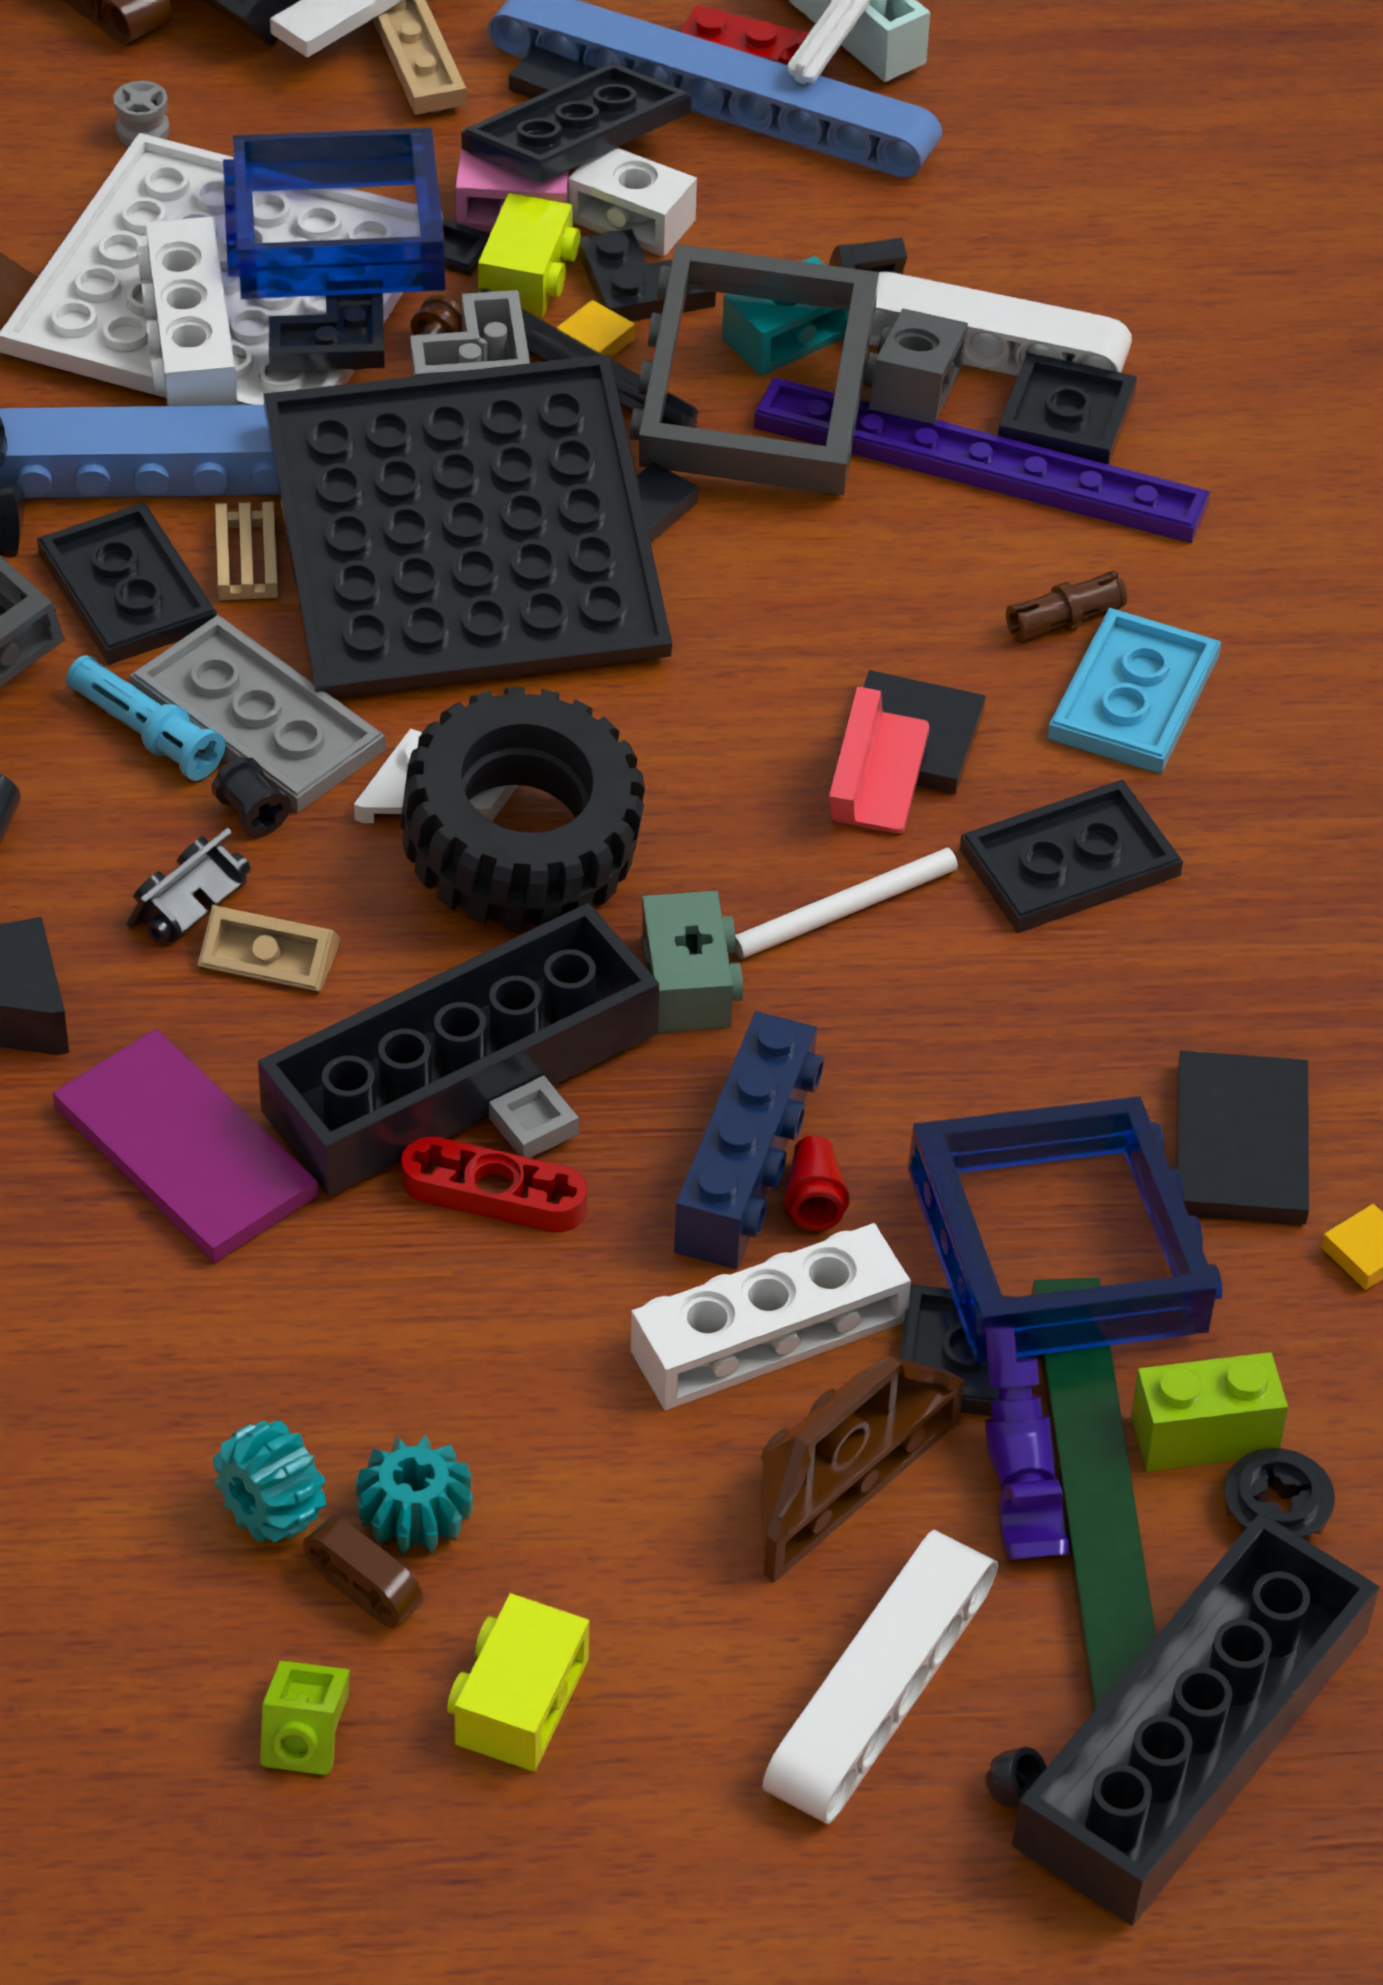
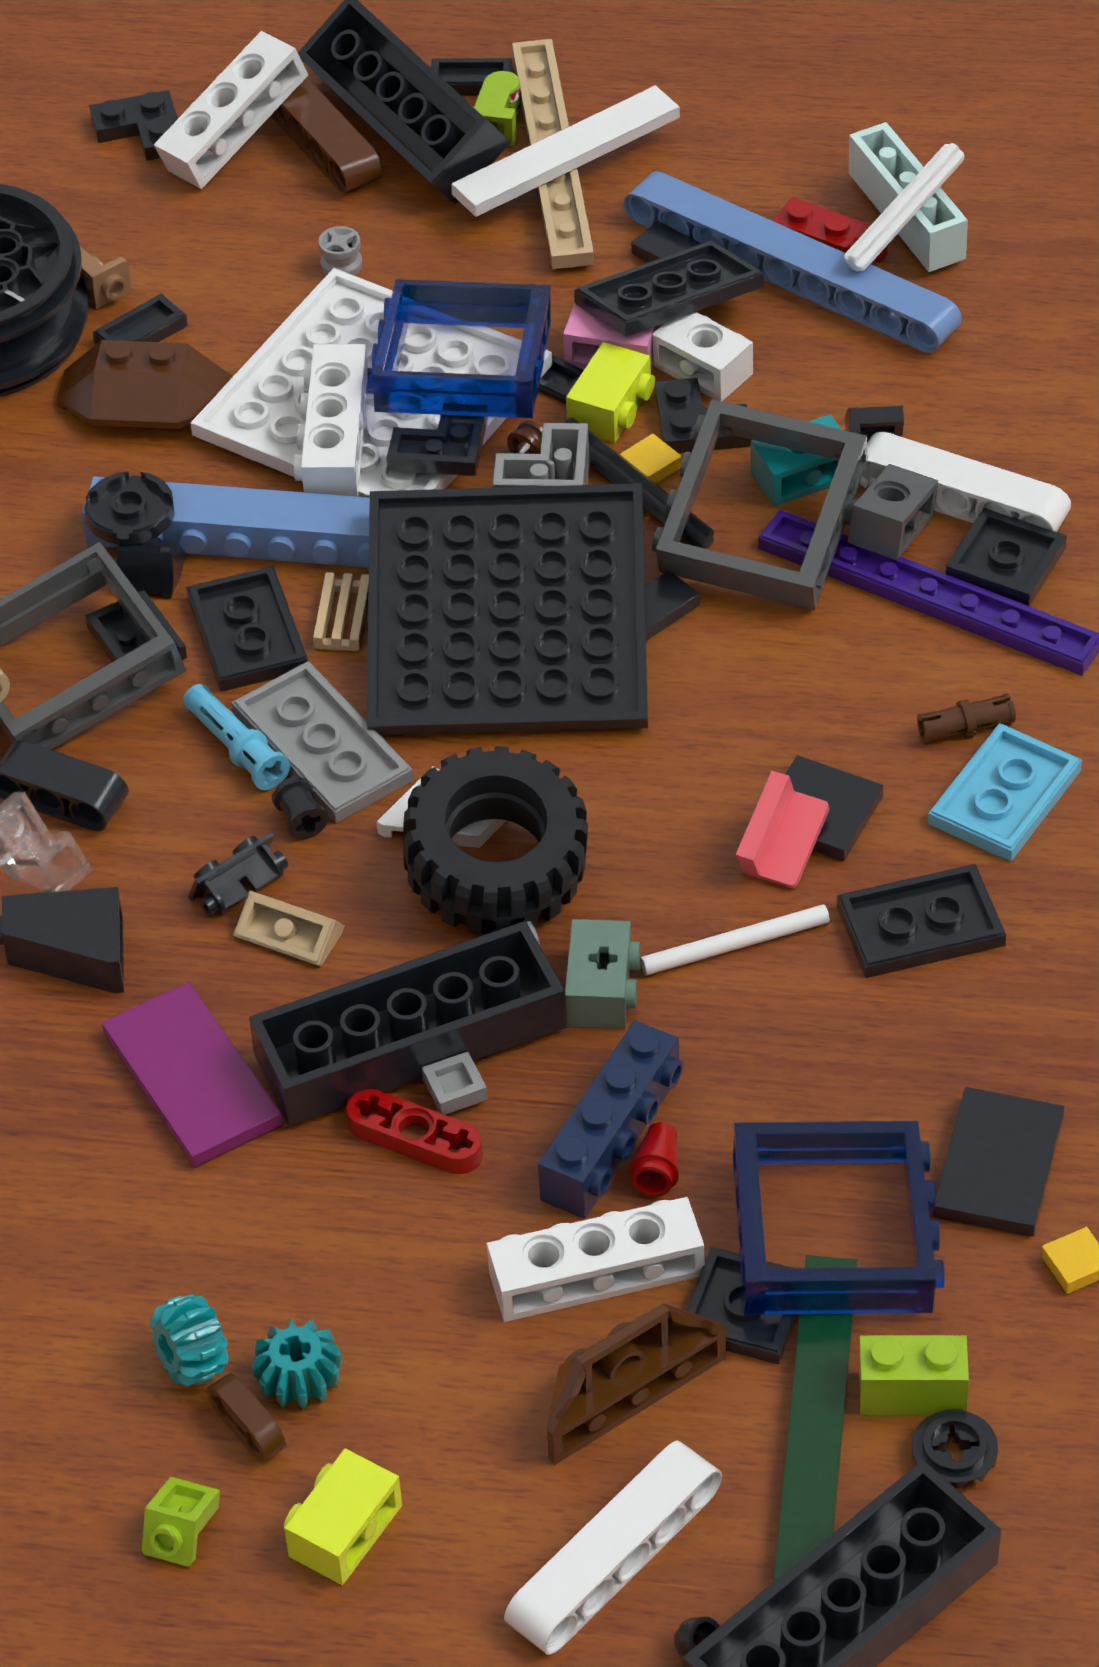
camera: 15 degrees right, 0 degrees up
(1022, 1455) = (761, 1391): dark purple piece -> none

